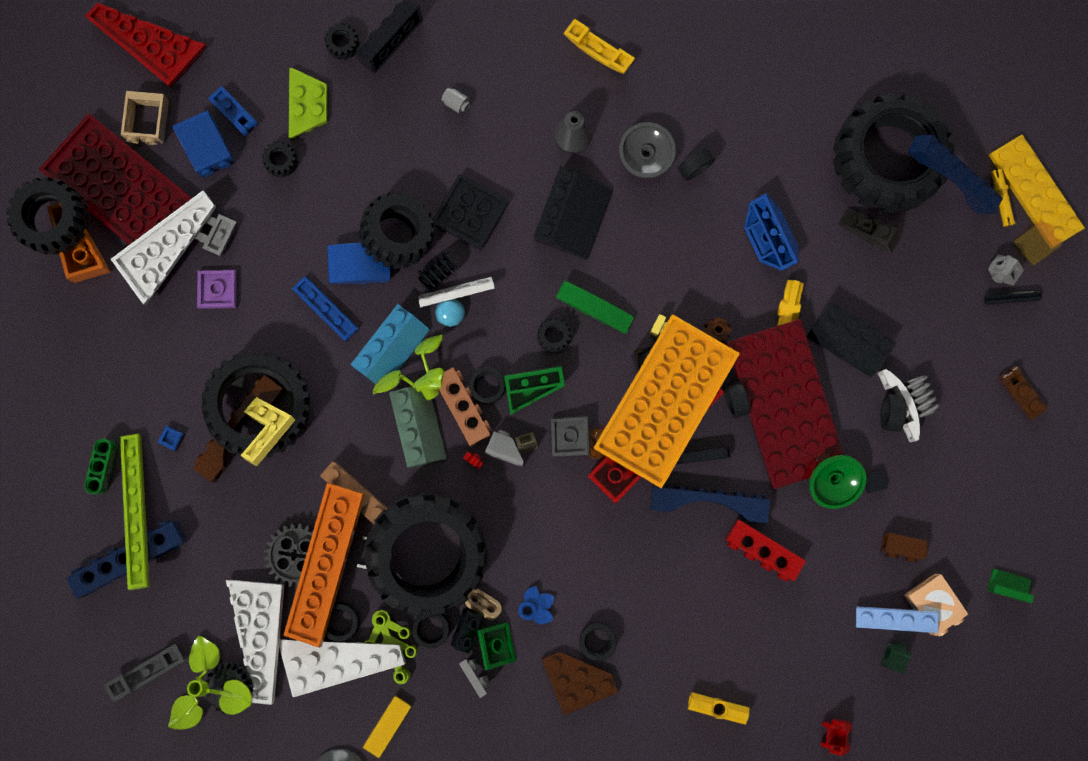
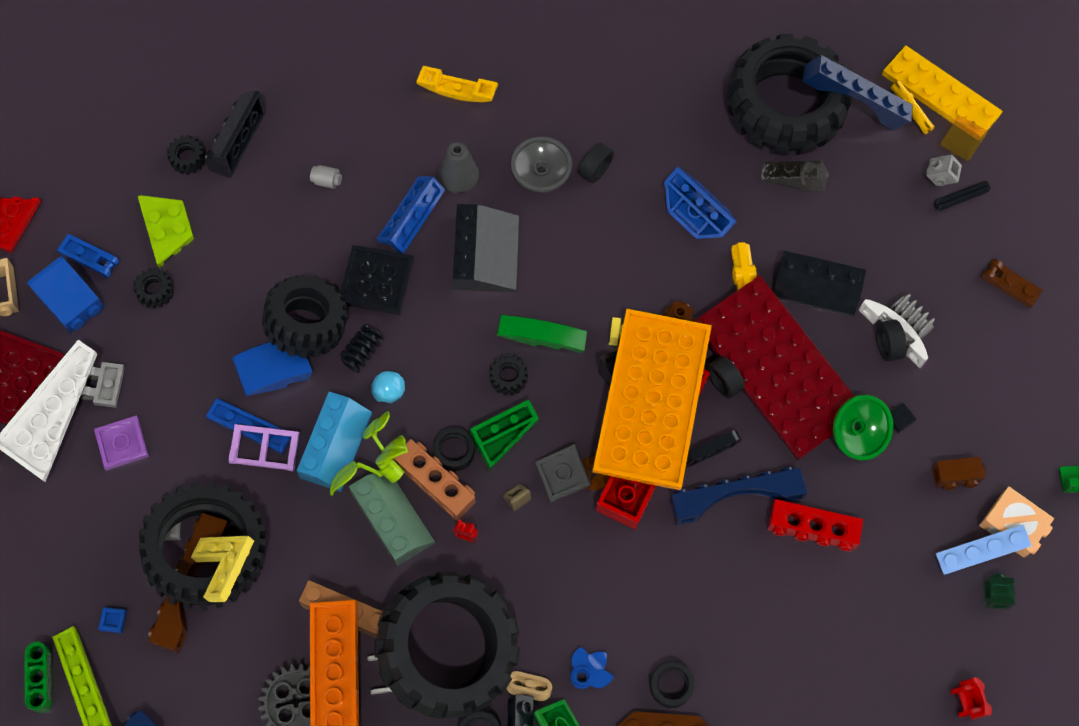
camera: 20 degrees left, 15 degrees down
(336, 321) = (233, 456): none -> lavender window
(456, 291) = (387, 363): white tile -> none
(504, 448) = (497, 509): light grey slope -> none
(521, 160) = (413, 213): none -> blue fence
(730, 711) = (846, 713): yellow piece -> none

